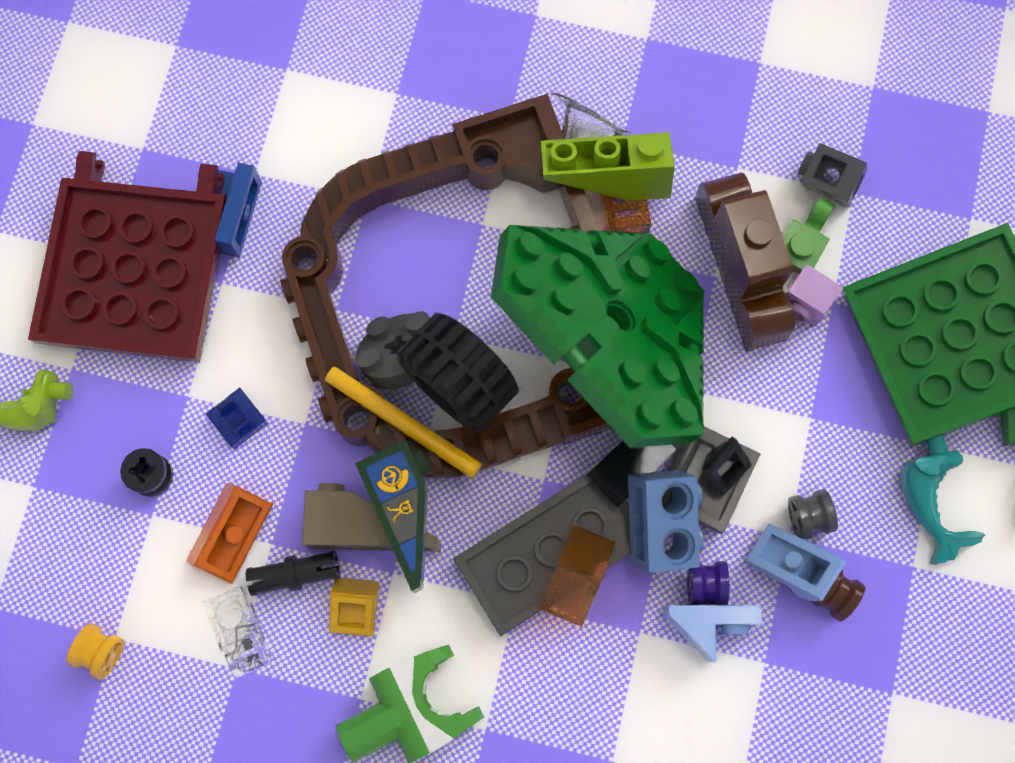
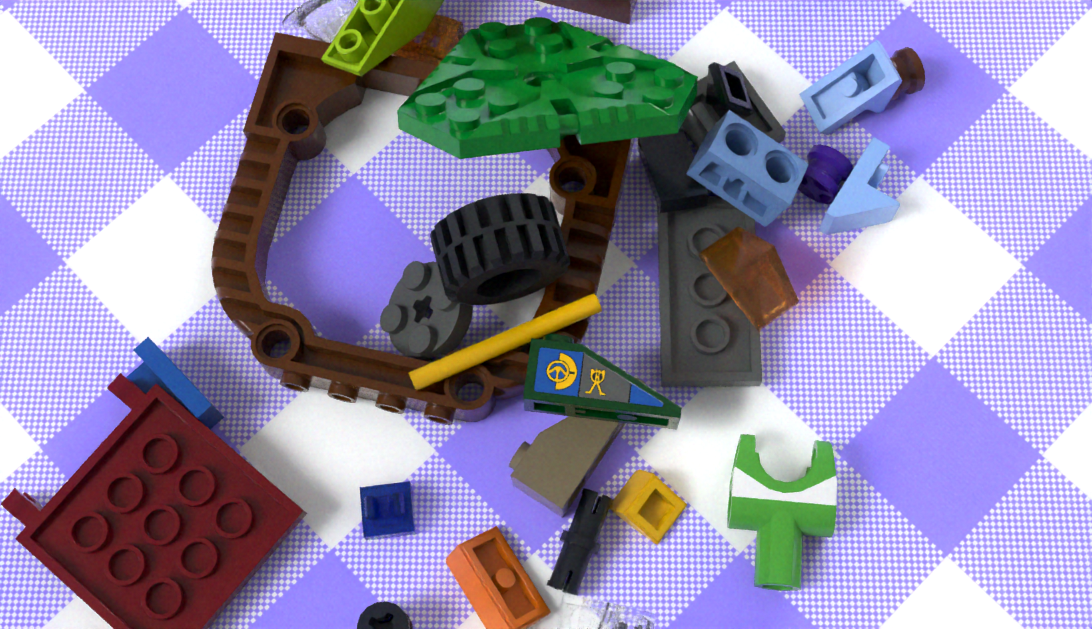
camera: 55 degrees left, 5 degrees down
(812, 514) = (814, 52): dark grey wheel -> none

